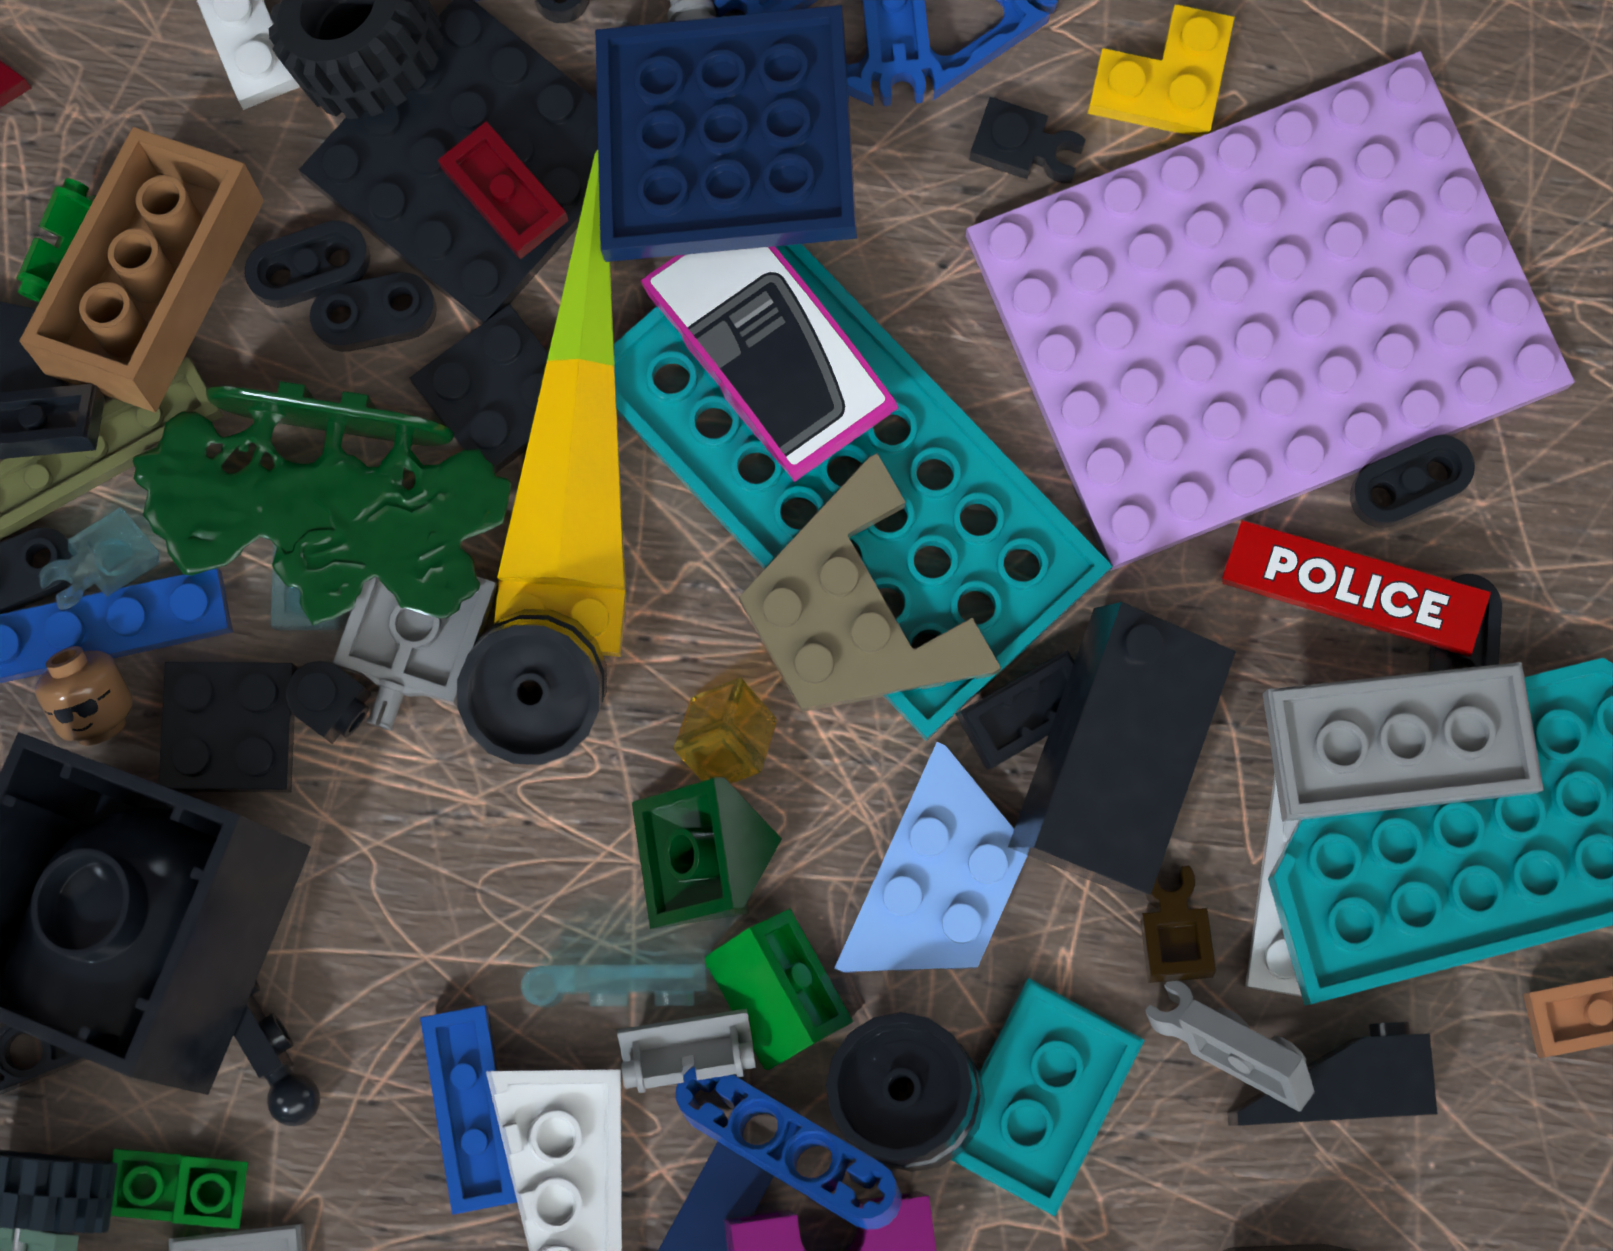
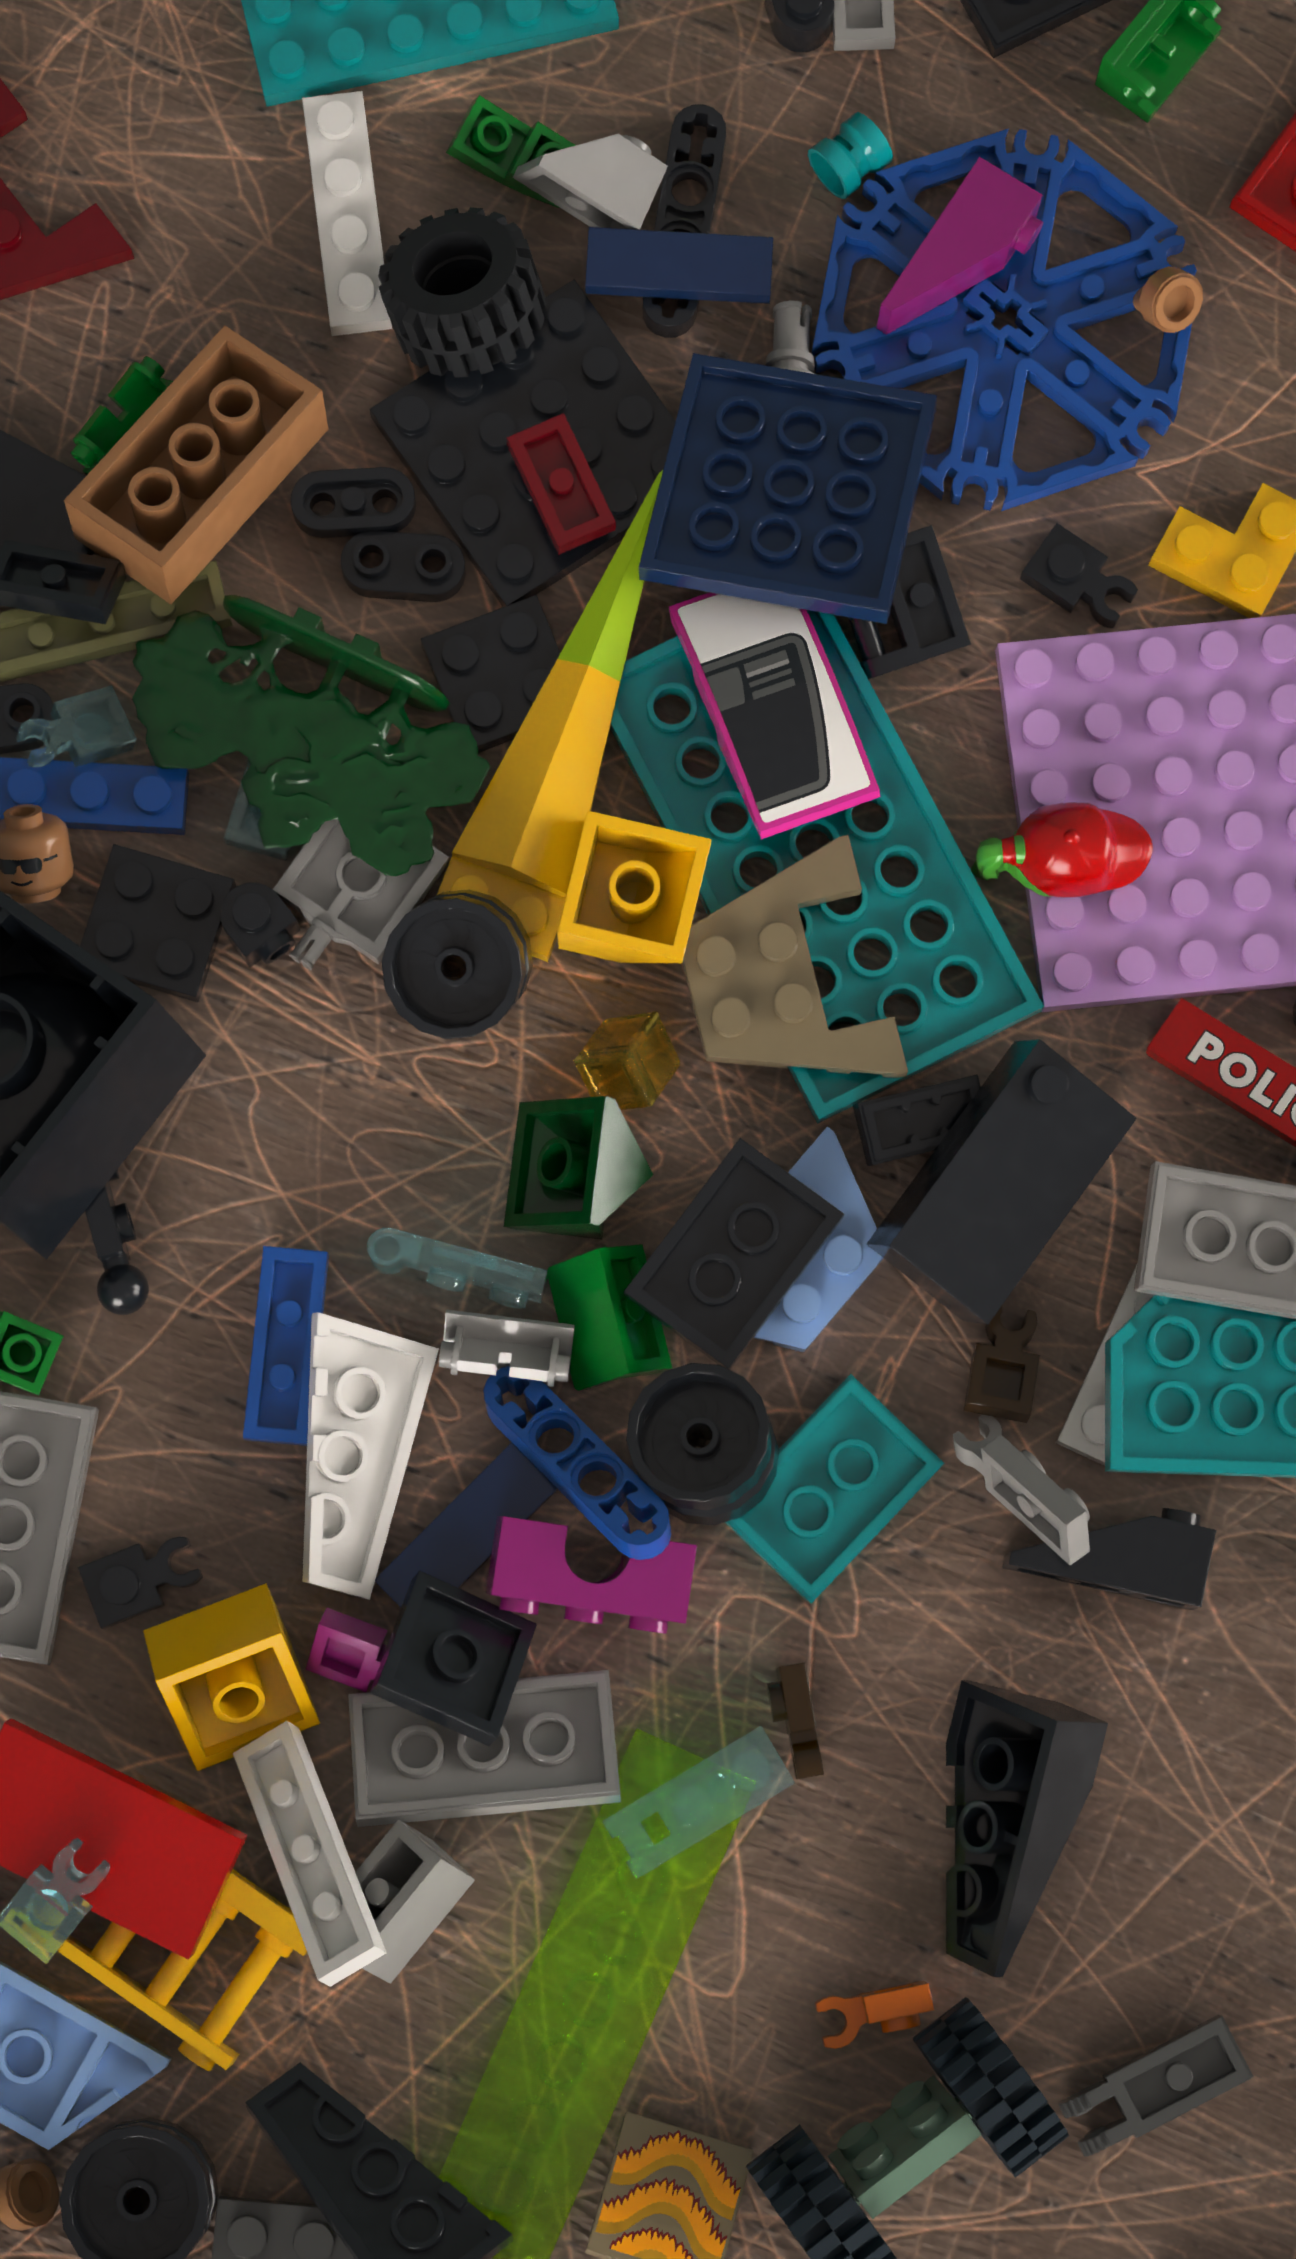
camera: 10 degrees right, 0 degrees up
(684, 567) = (632, 891): none -> yellow slope
(883, 896) = (734, 1254): none -> black plate
(886, 218) = (921, 610): none -> black plate
(1093, 409) = (1068, 851): none -> red hair

